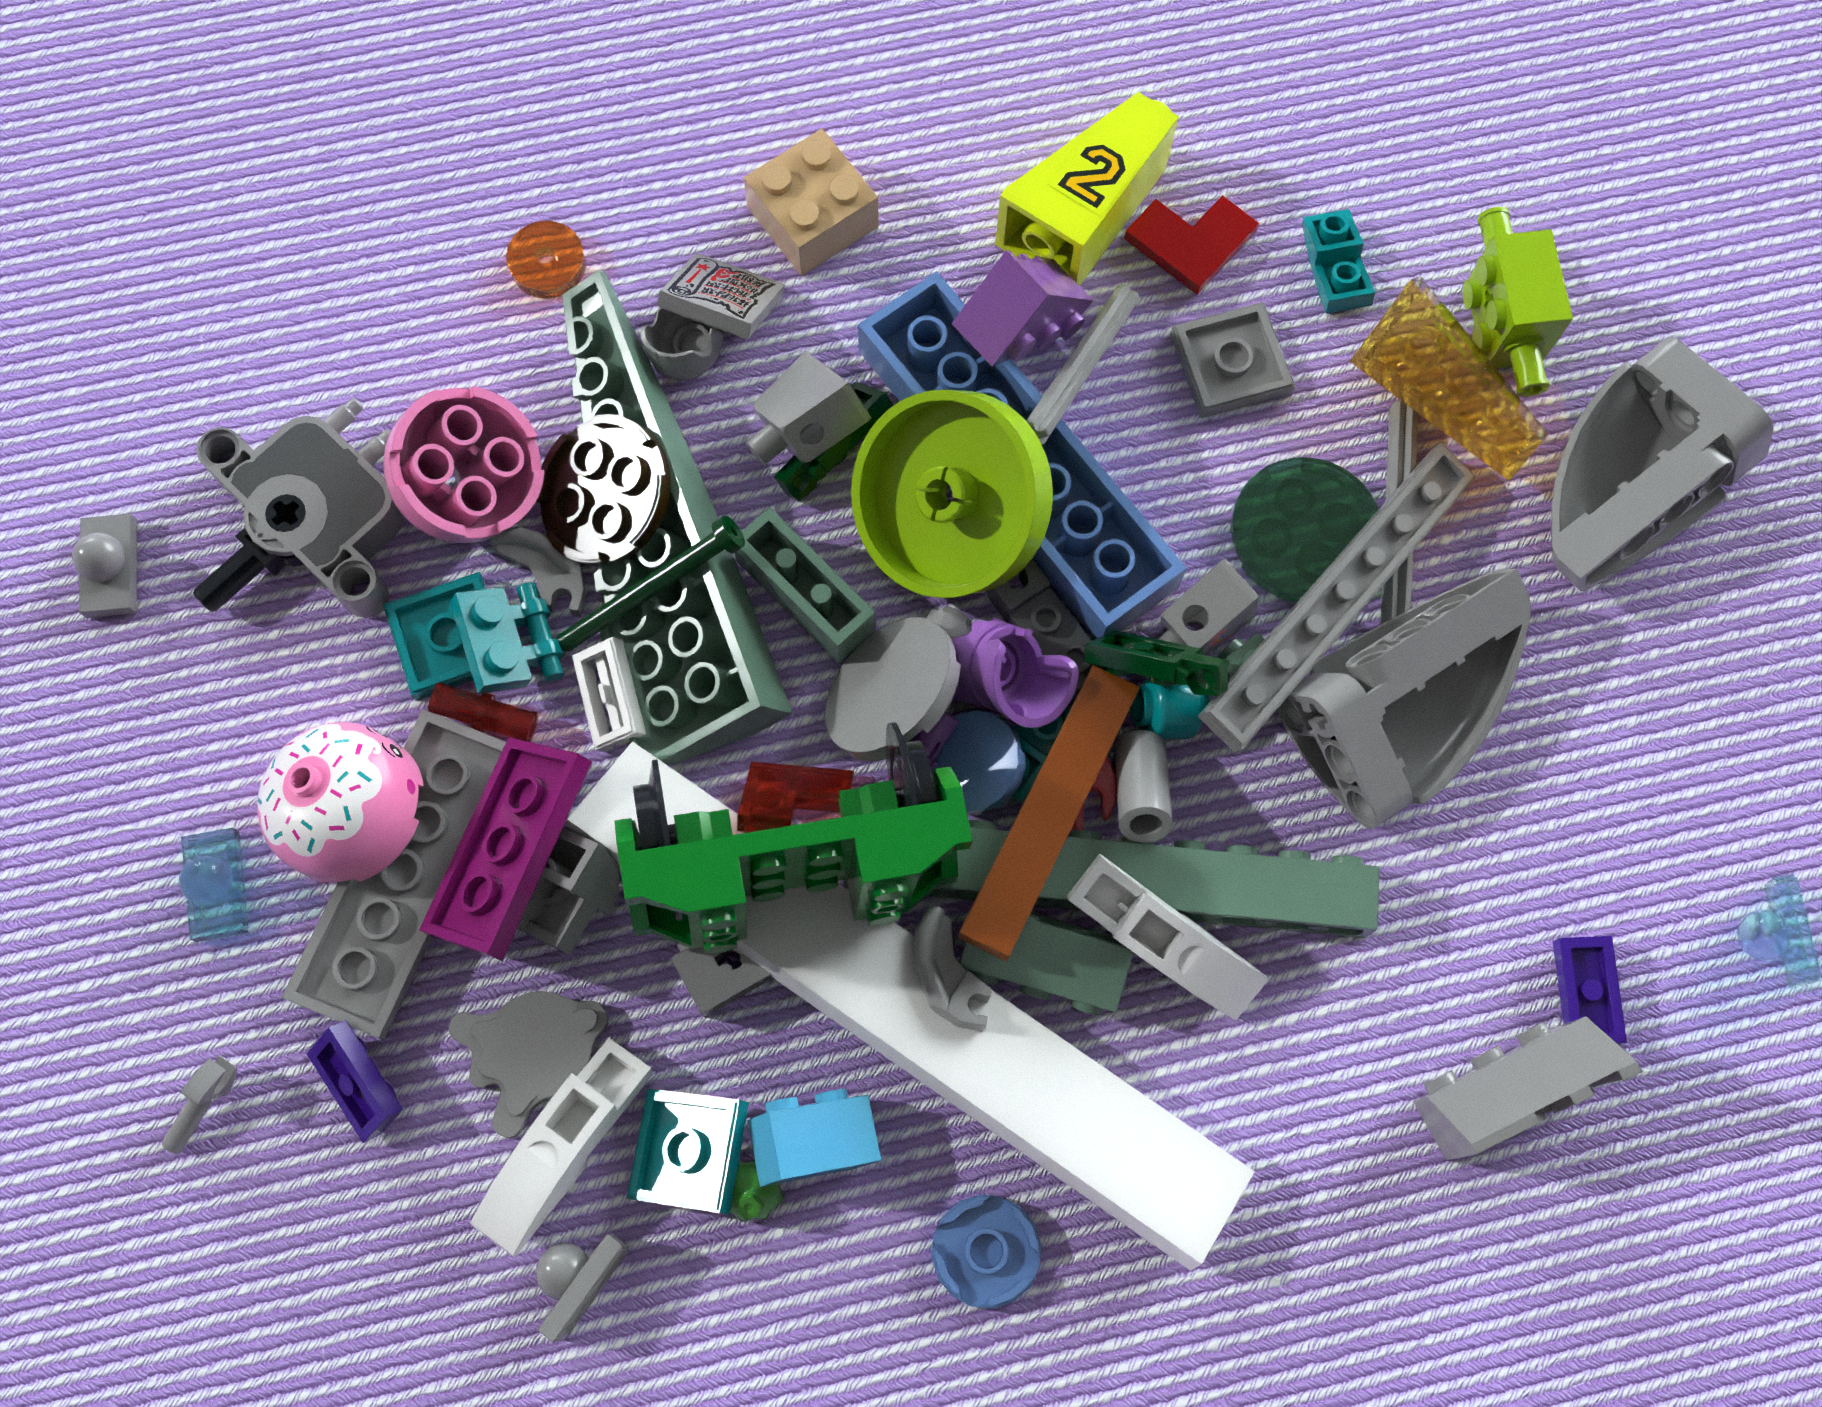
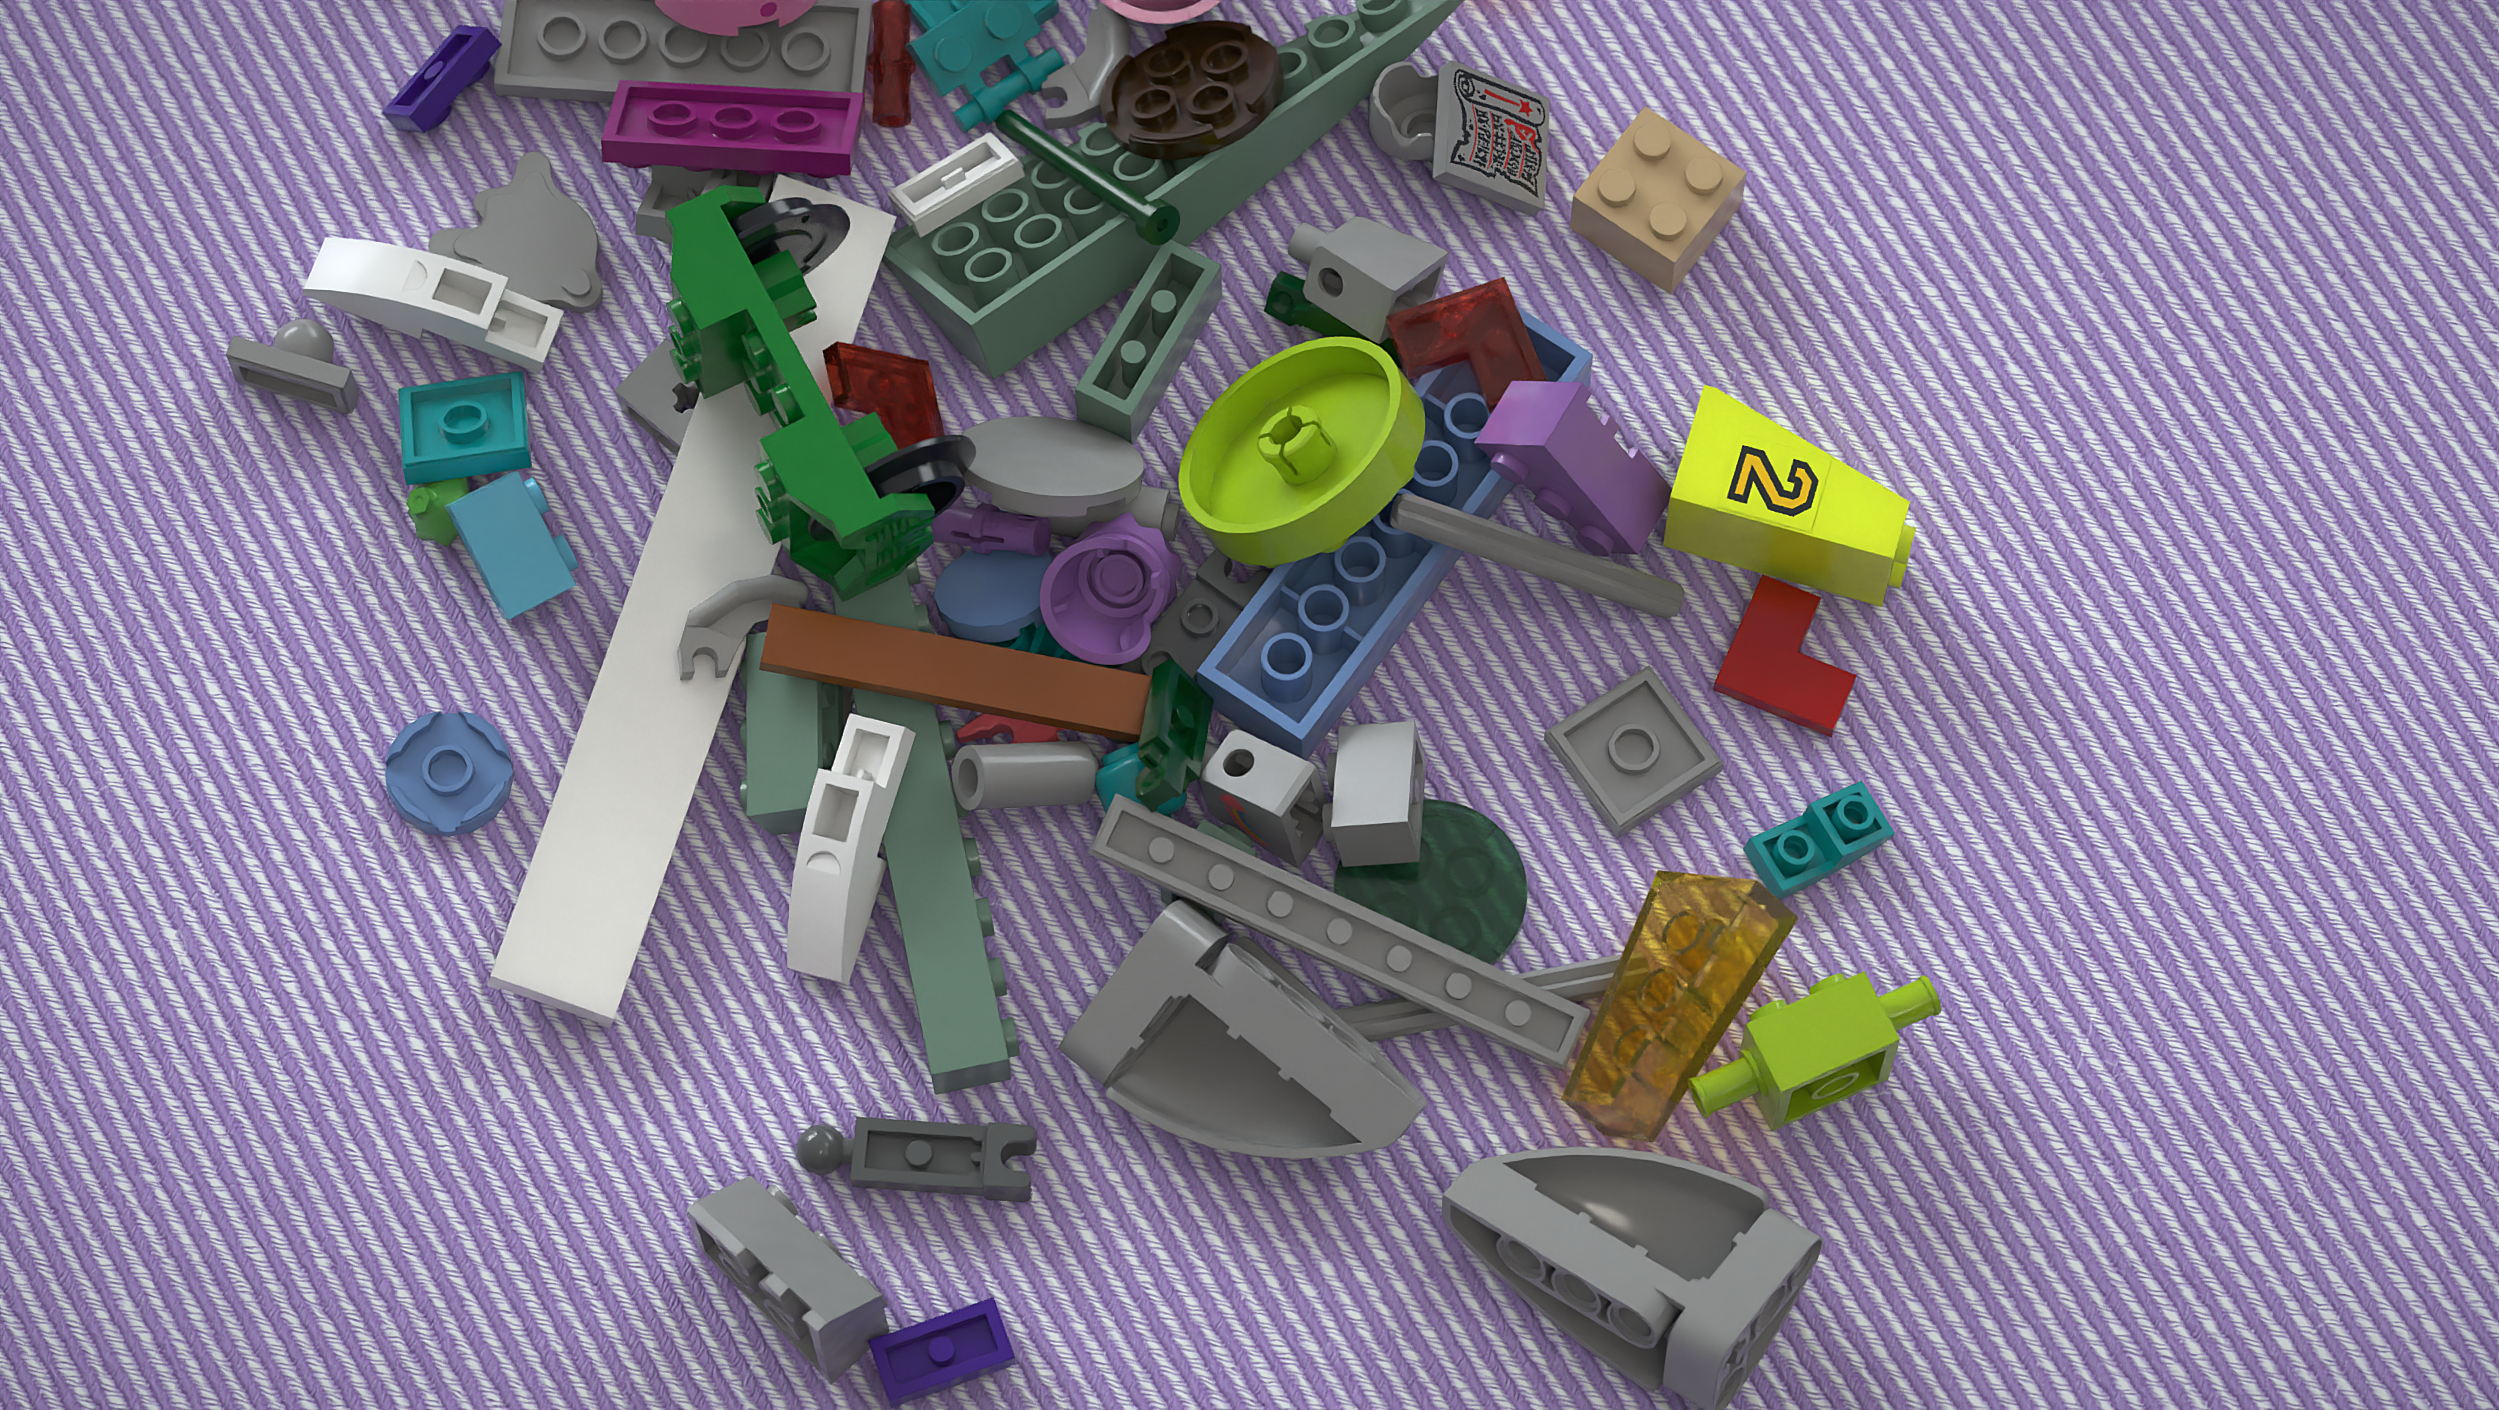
camera: 75 degrees right, 5 degrees down
(896, 335) = (1469, 326): none -> clear red tile
(1232, 528) = (1376, 794): none -> light grey brick
(1425, 960) = (924, 1156): none -> dark grey plate

